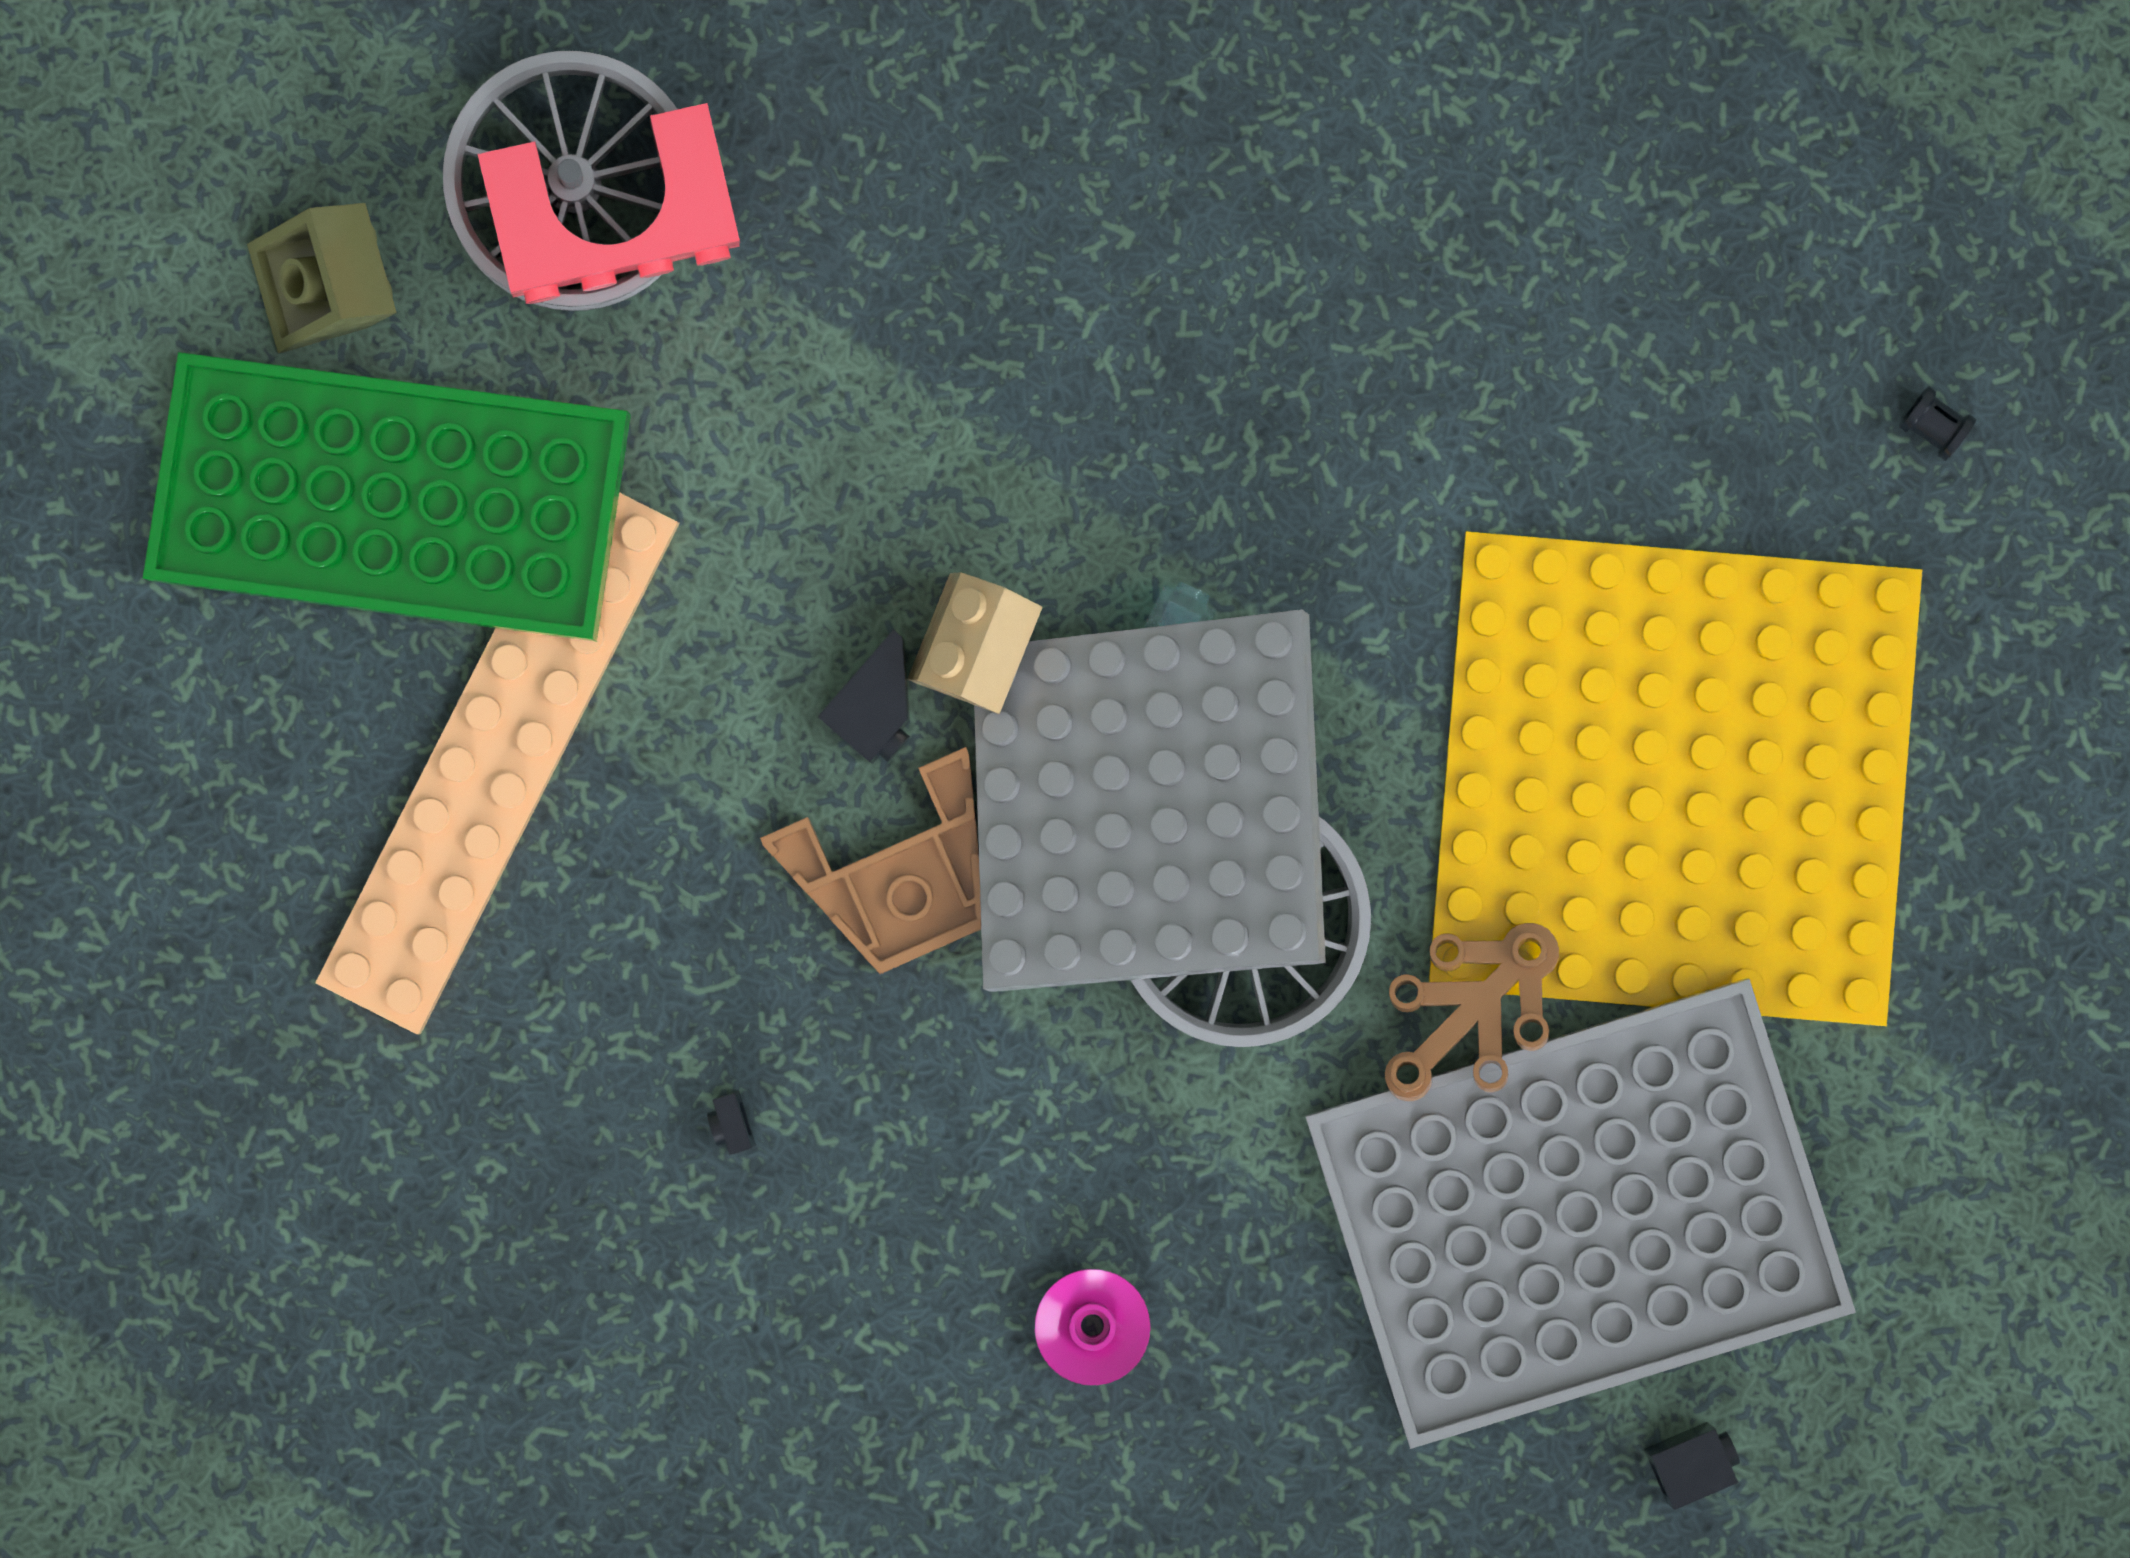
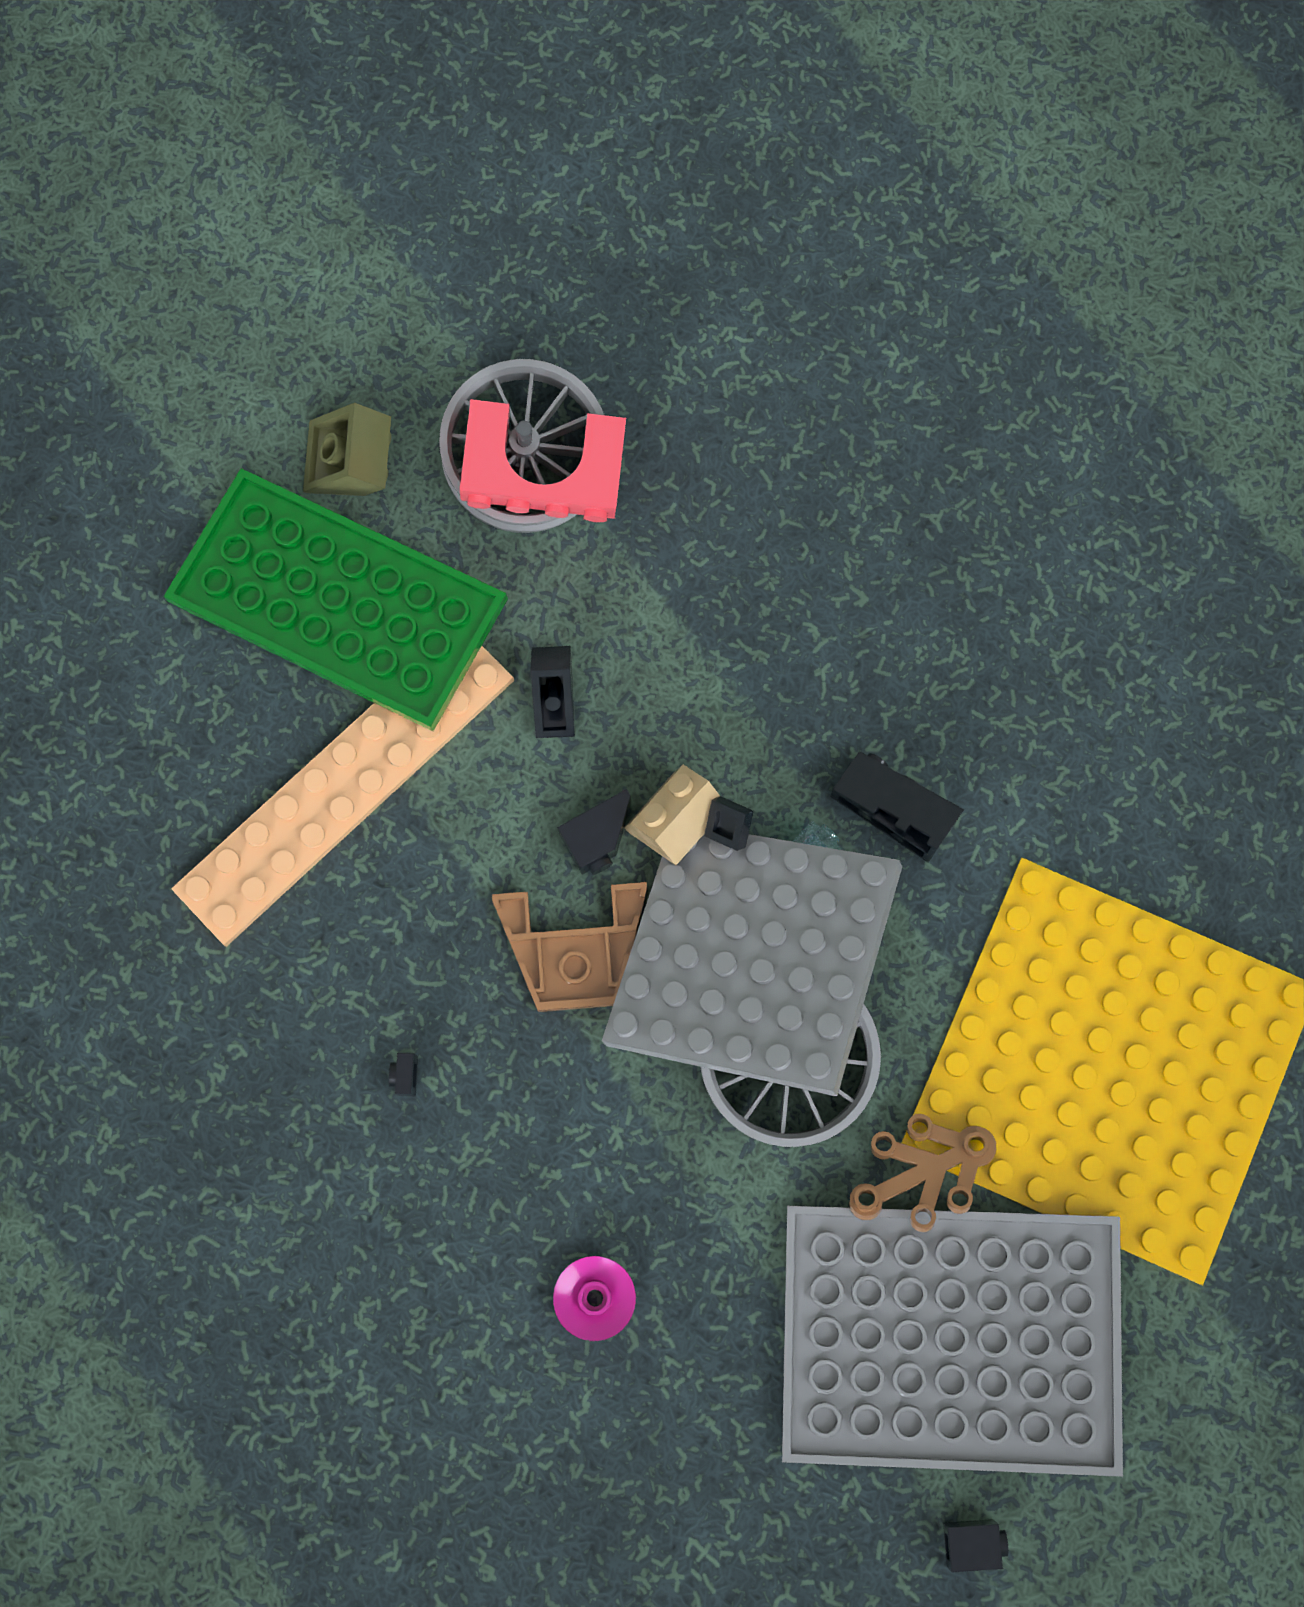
camera: 20 degrees right, 10 degrees down
(740, 523) = (552, 691): none -> black slope
(1052, 633) = (728, 823): none -> black plate
(1272, 520) = (896, 805): none -> black wedge

